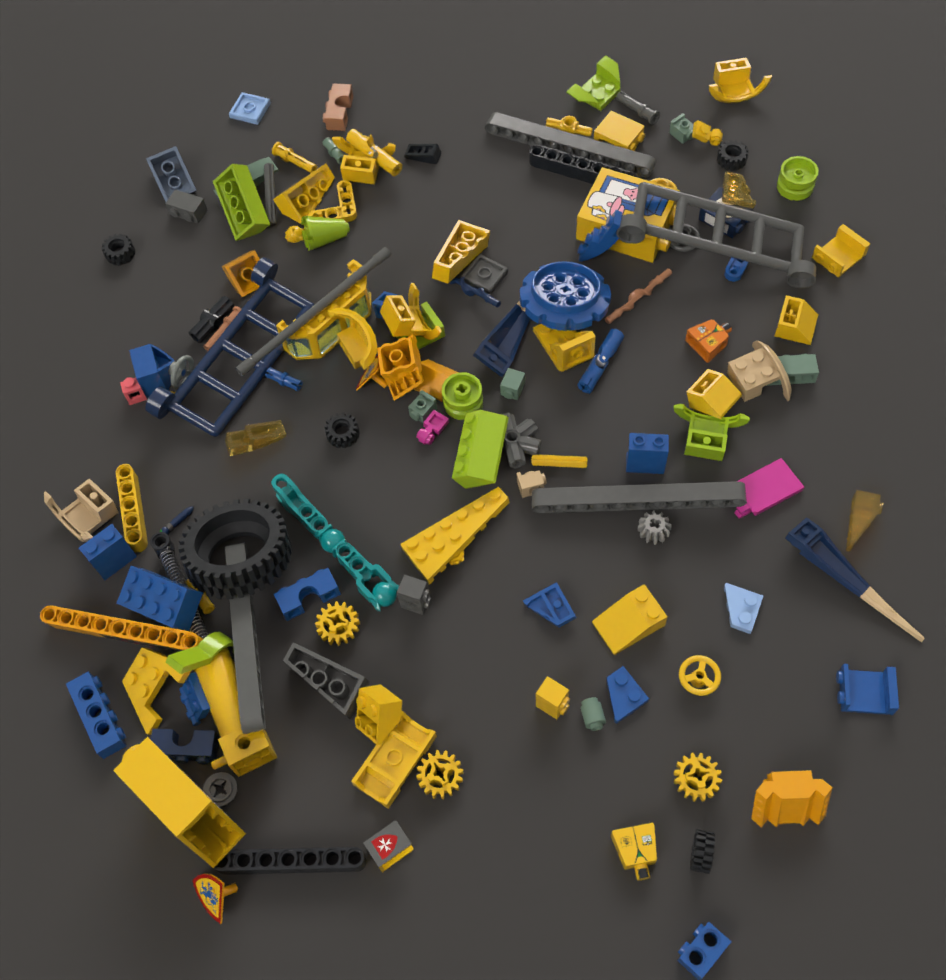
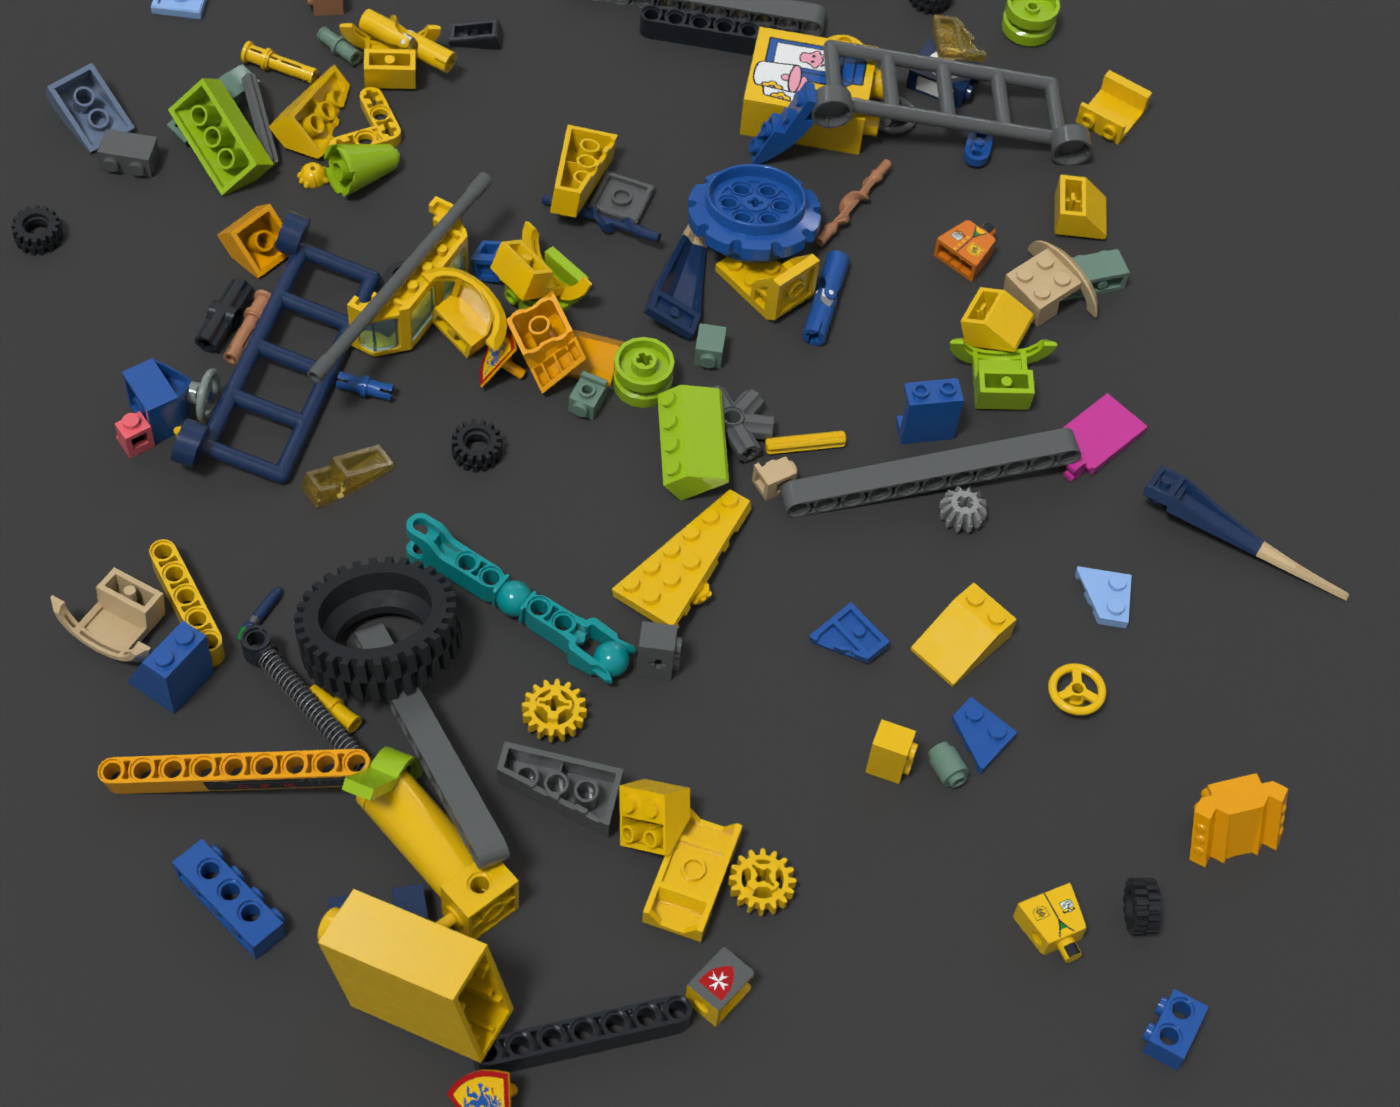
camera: 25 degrees left, 5 degrees down
(144, 682) = (293, 835): yellow wing -> none
(159, 598) = (282, 715): blue brick -> none
(194, 699) = (381, 842): blue plate -> none
(291, 597) = (513, 661): blue arch -> none
(434, 423) = (611, 417): dark pink plate -> none
(699, 786) = (1108, 818): yellow gear -> none
(863, 512) = (1231, 446): clear yellow slope -> none
(868, 691) = (1297, 671): blue panel -> none

